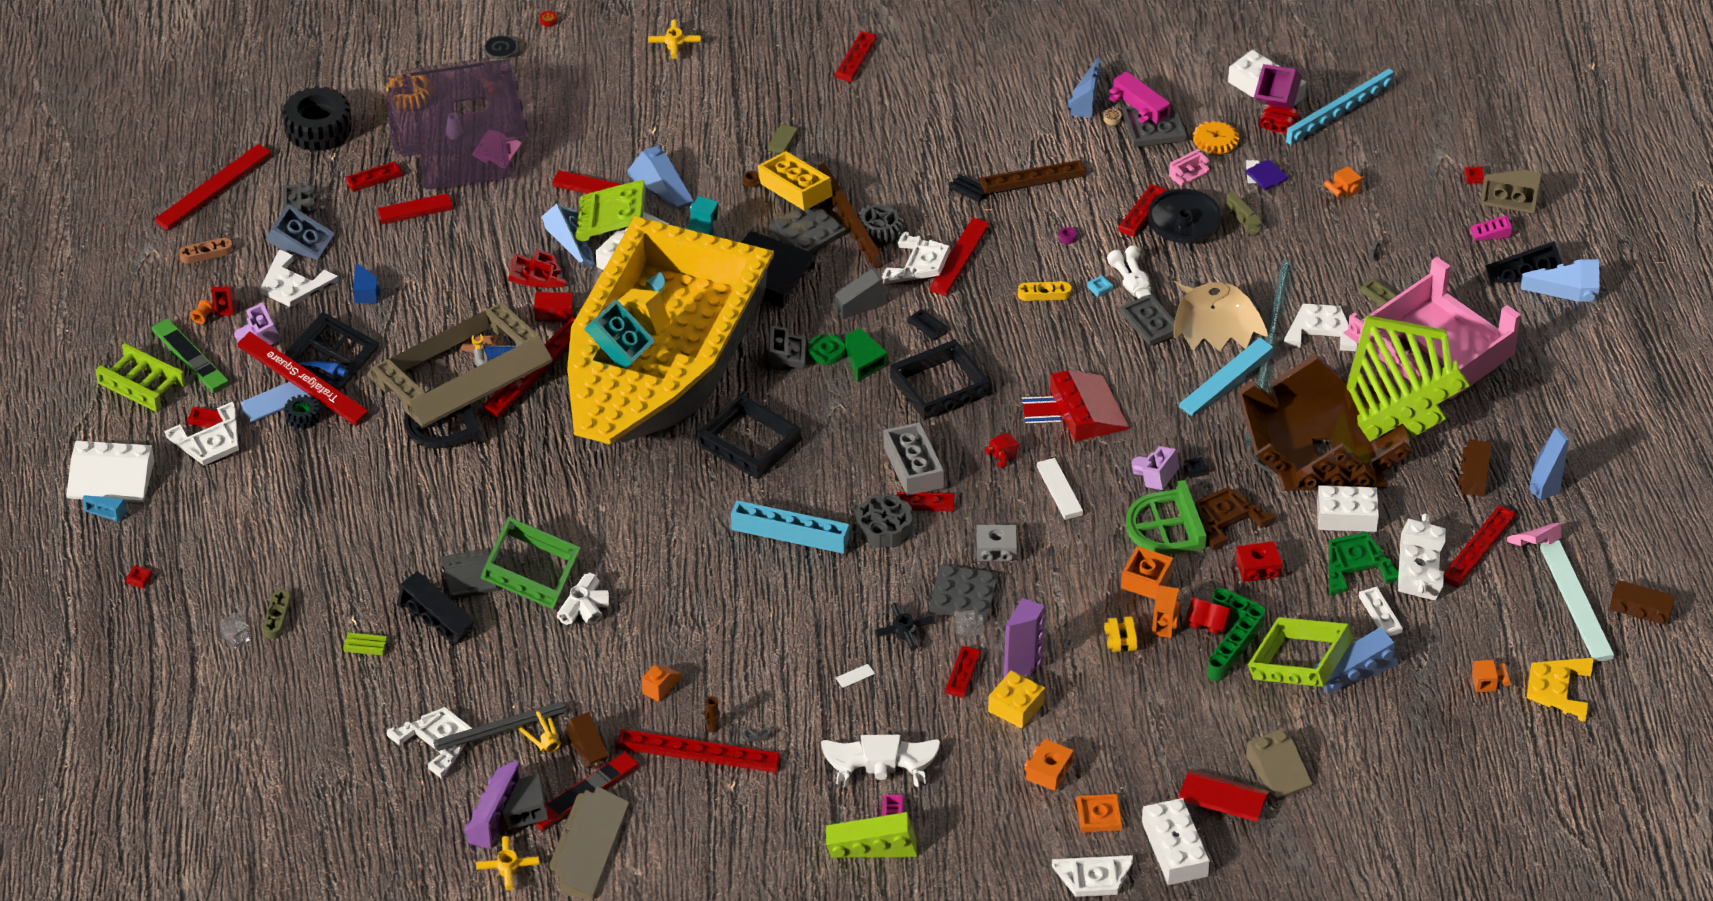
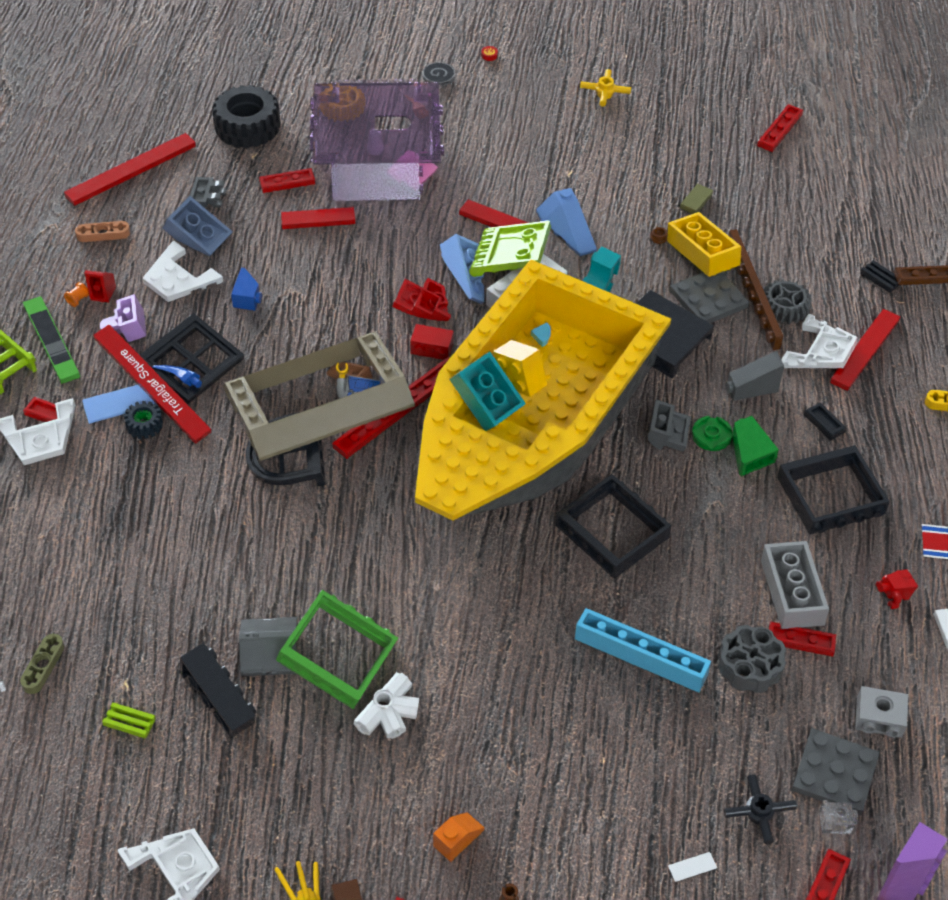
camera: 10 degrees right, 5 degrees up
(498, 726) = (249, 869): dark grey axle -> none

